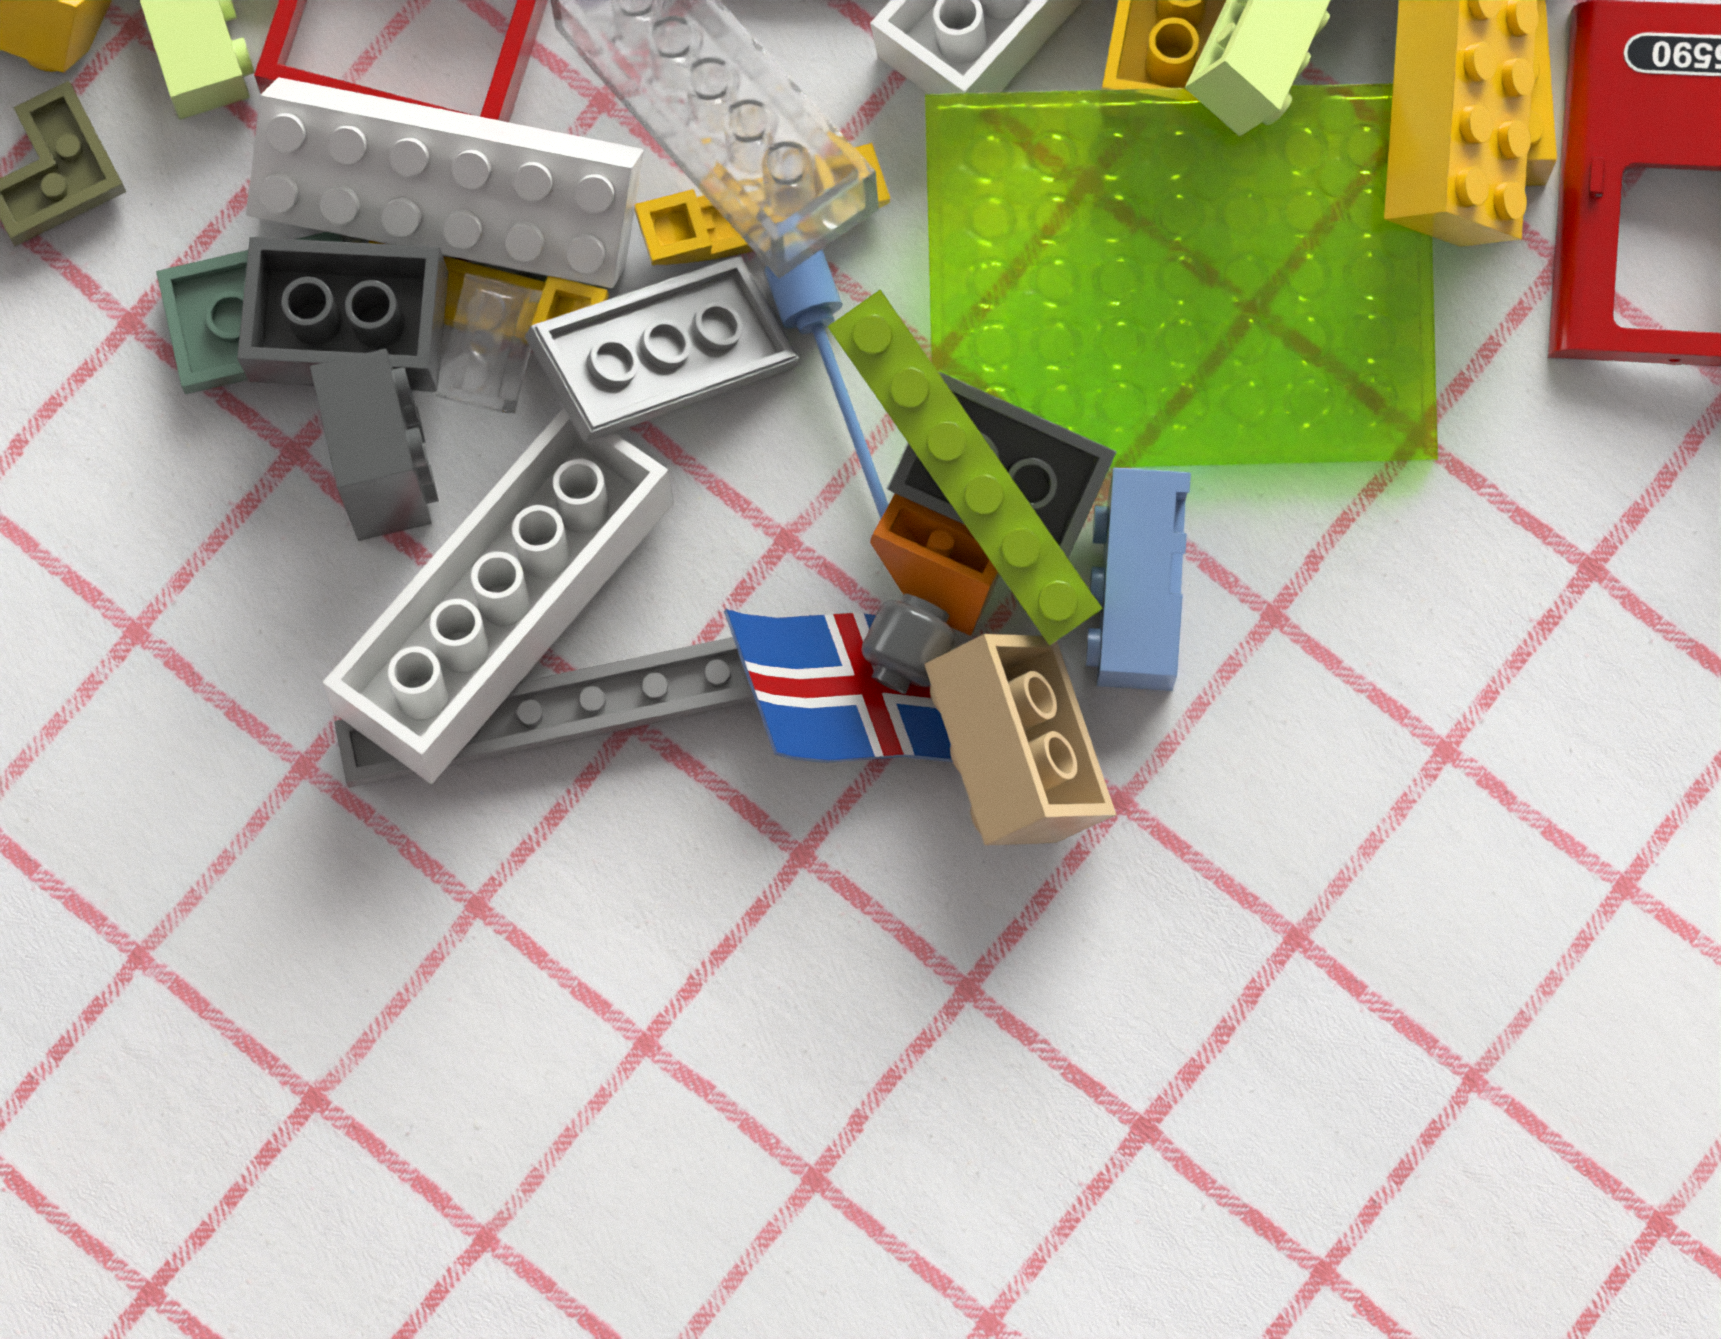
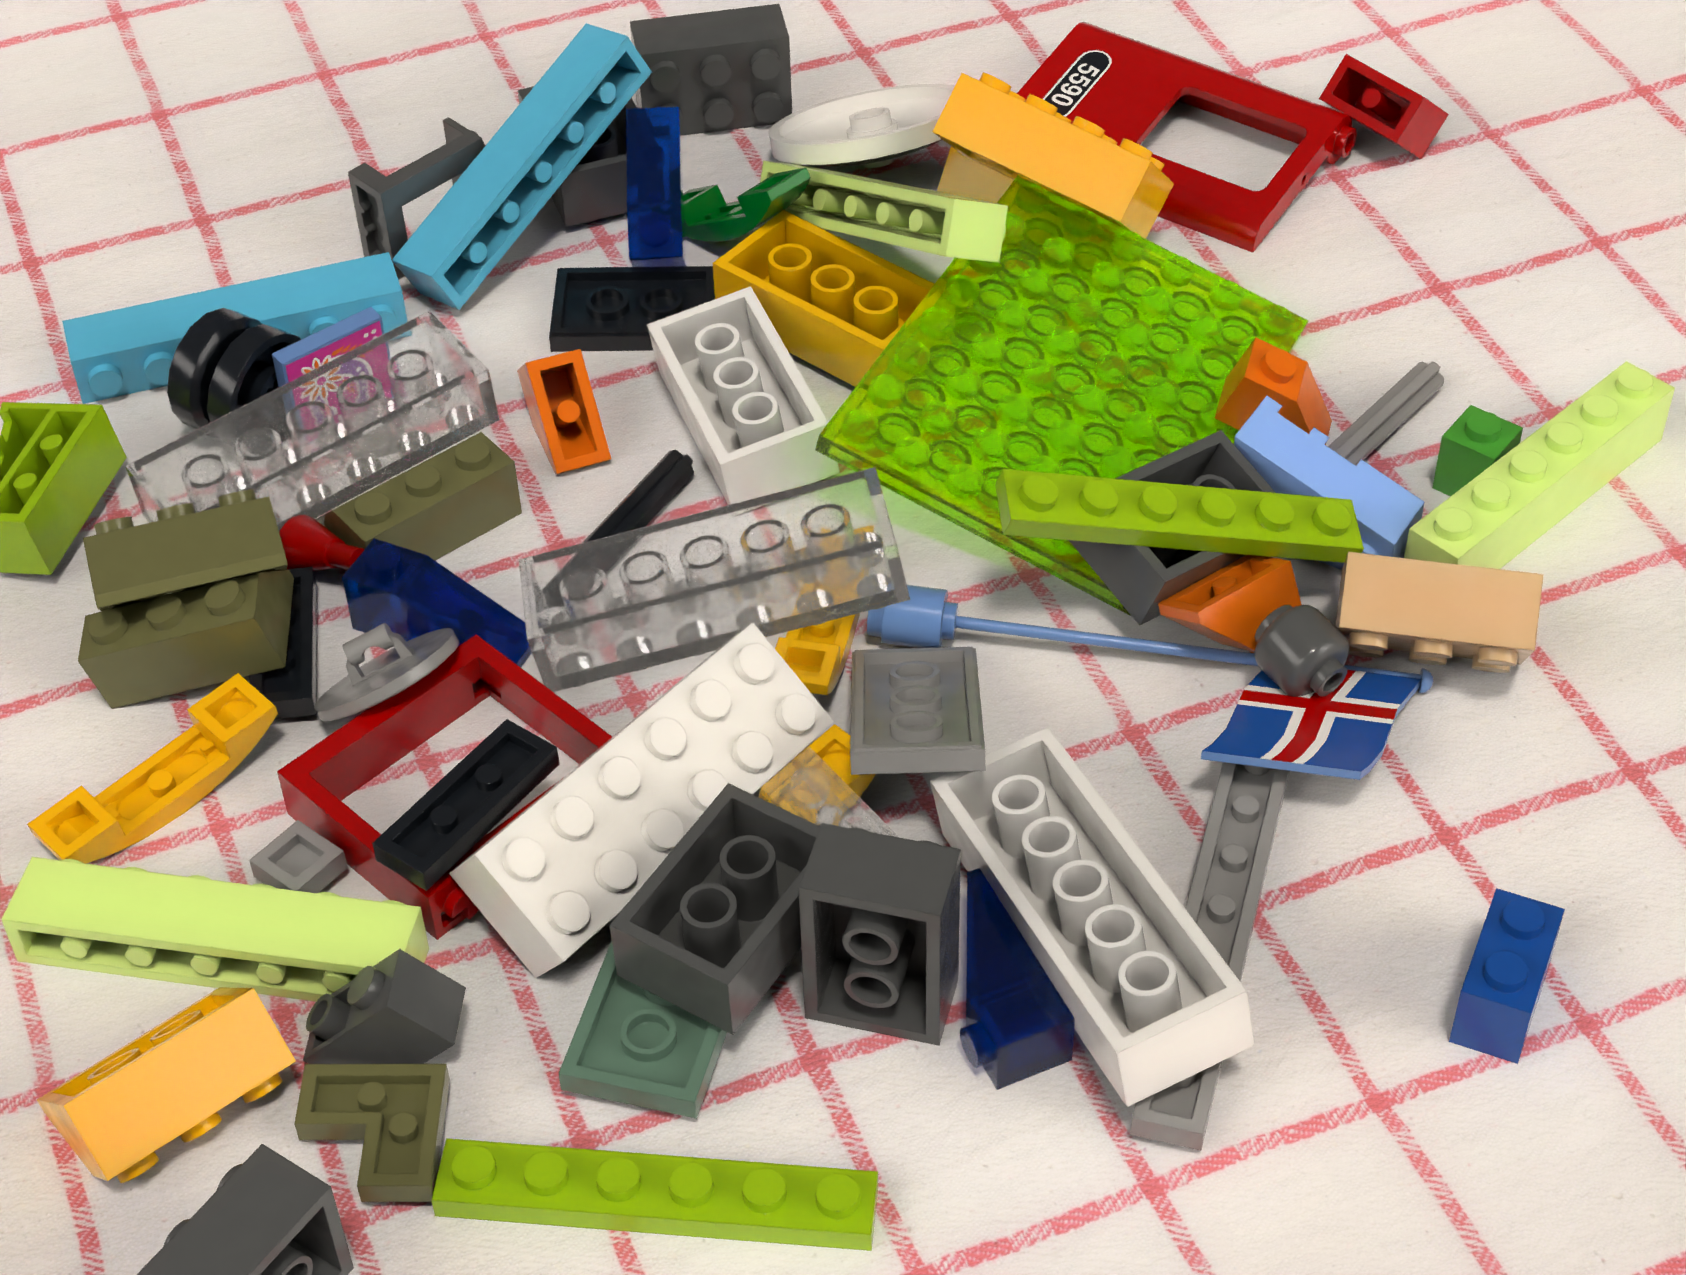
camera: 60 degrees left, 30 degrees down
(103, 404) = (657, 1194): none -> lime plate
(142, 112) = (386, 1016): none -> dark grey slope
(346, 49) = (466, 804): none -> black plate
(387, 564) = (1012, 1008): none -> clear blue slope
(633, 957) = (1506, 975): none -> blue brick
(1256, 486) = (1276, 374): none -> orange slope
(1292, 772) = (1546, 473): none -> yellowish green brick
(1296, 701) = (1471, 447): none -> bright green brick
(1305, 585) = (1388, 412): none -> light grey axle

